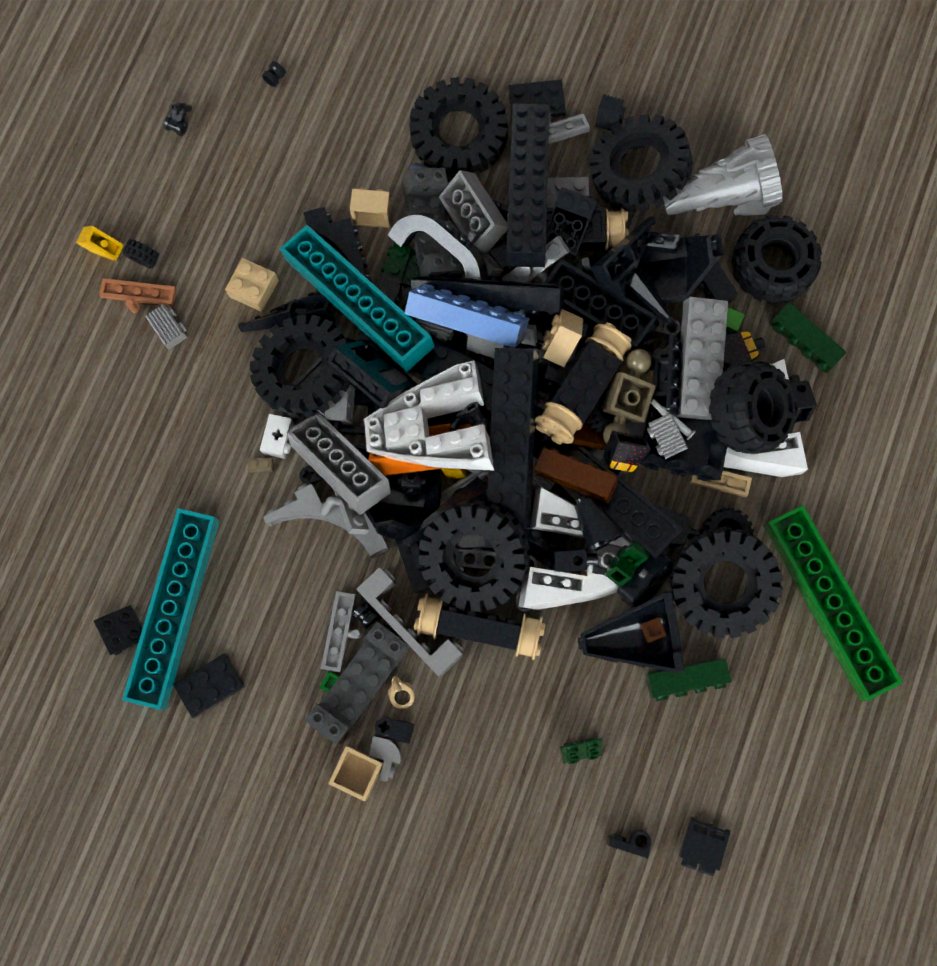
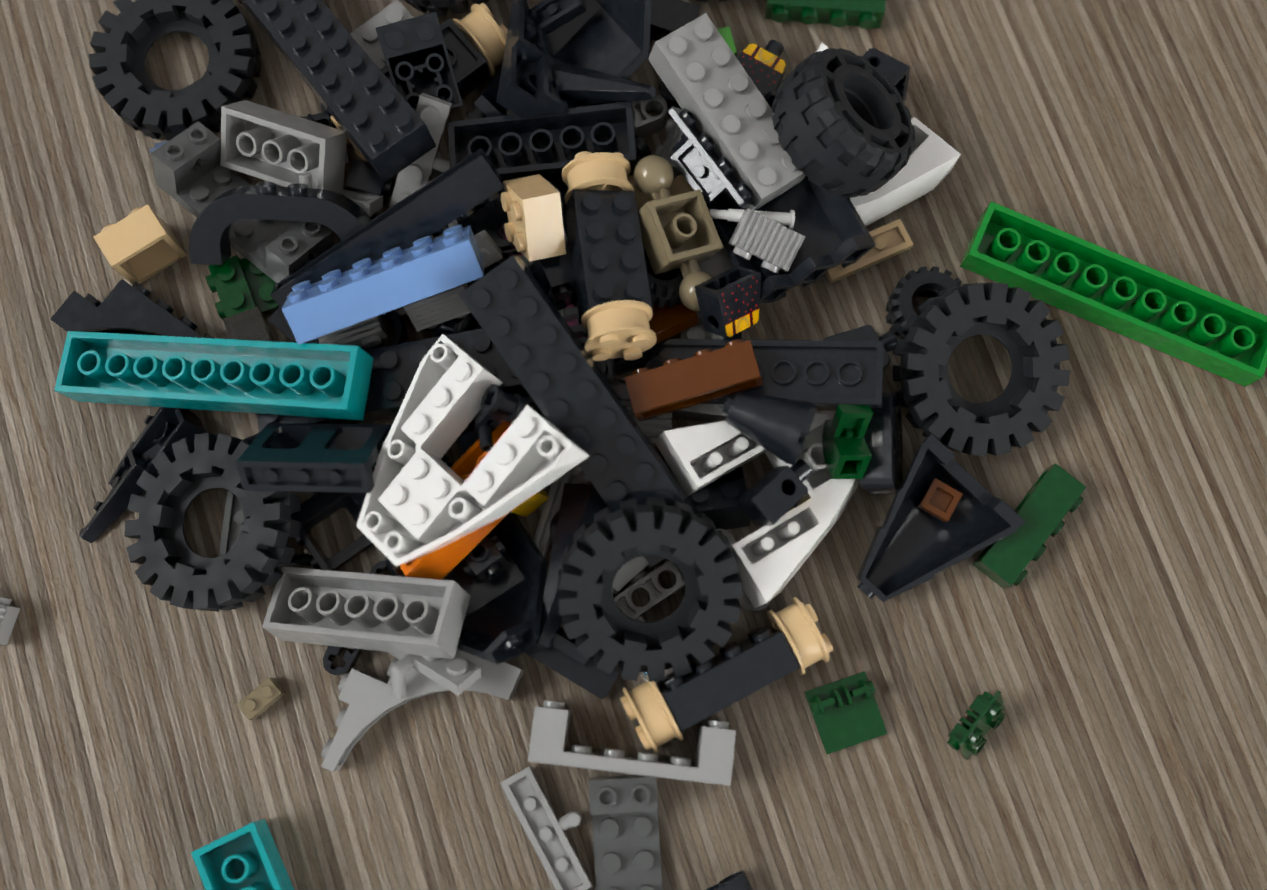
camera: 45 degrees left, 0 degrees up
(252, 284) = (55, 468): tan brick -> none
(275, 426) = (239, 634): white brick -> none
(343, 409) = (315, 535): light grey panel -> none
(365, 615) = (571, 785): black wheel -> none
(396, 686) = (683, 841): tan piece -> none
(523, 692) = (846, 712): none -> dark green hinge
(619, 842) = (1135, 795): black plate -> none
(703, 847) = (1220, 719): black plate -> none

